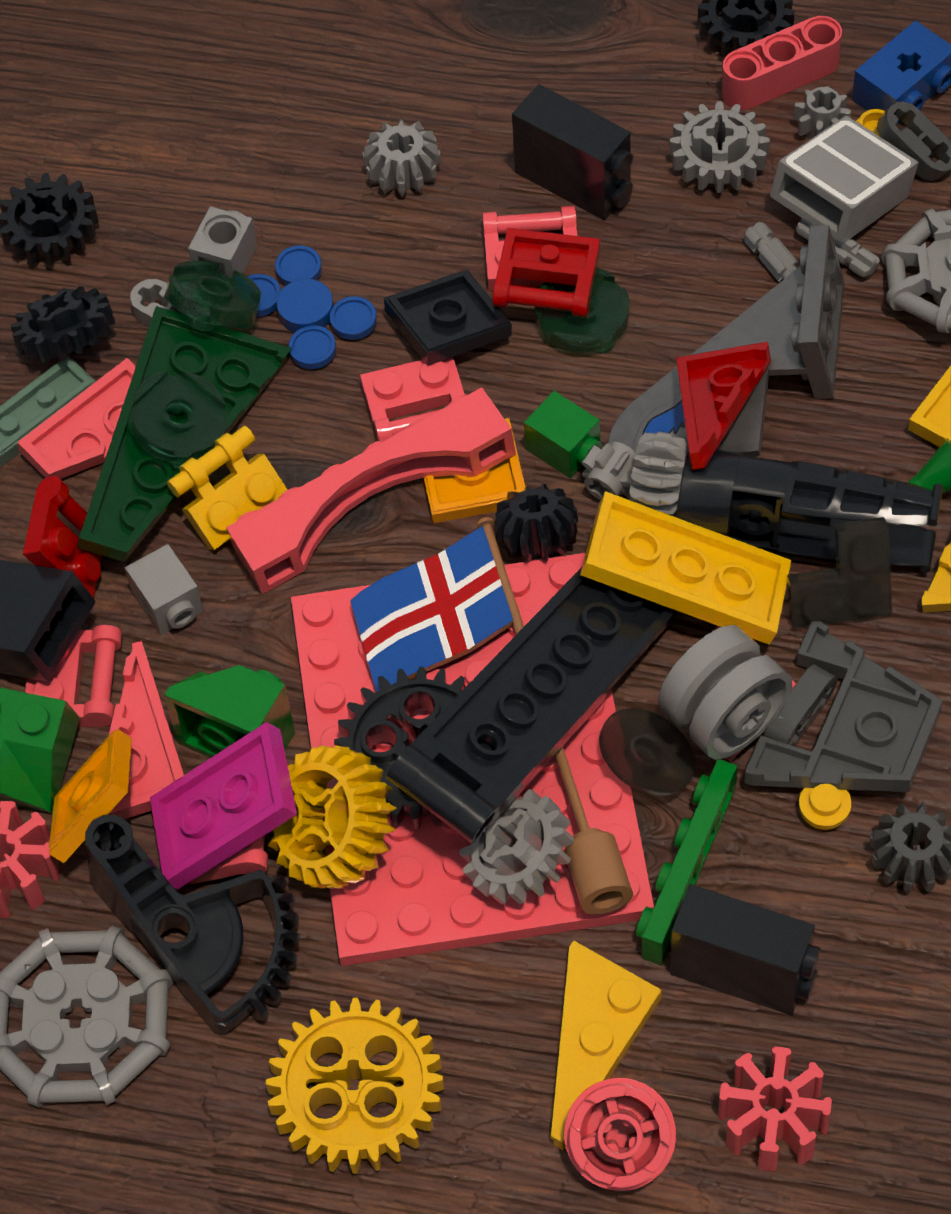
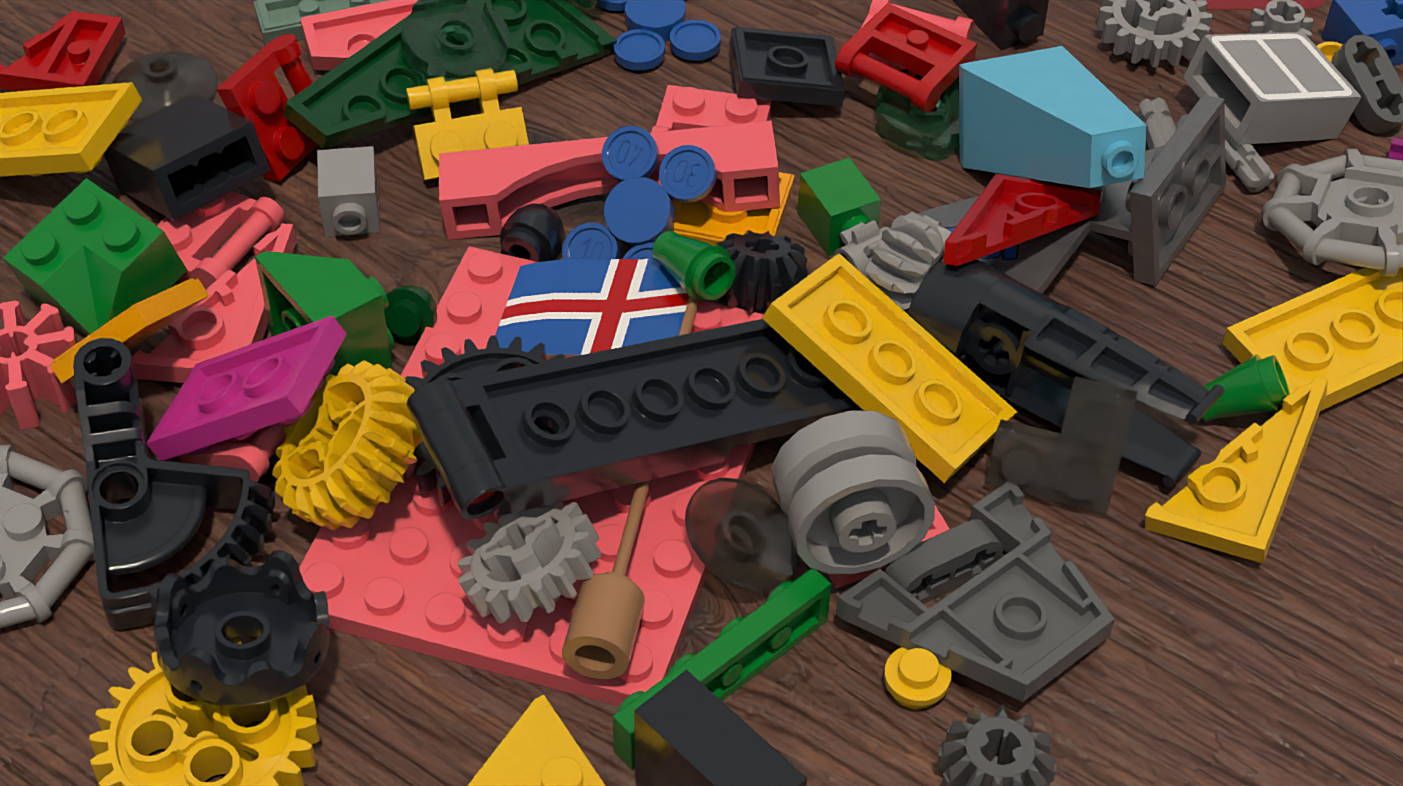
camera: 20 degrees right, 10 degrees down
(289, 671) = (410, 312): none -> dark green plate
(335, 565) = (533, 234): none -> black piece
(346, 968) = (235, 601): none -> black plate
(414, 508) = (638, 206): none -> blue piece
(492, 543) = (697, 266): none -> green cone
(701, 299) = (1046, 121): none -> medium azure slope

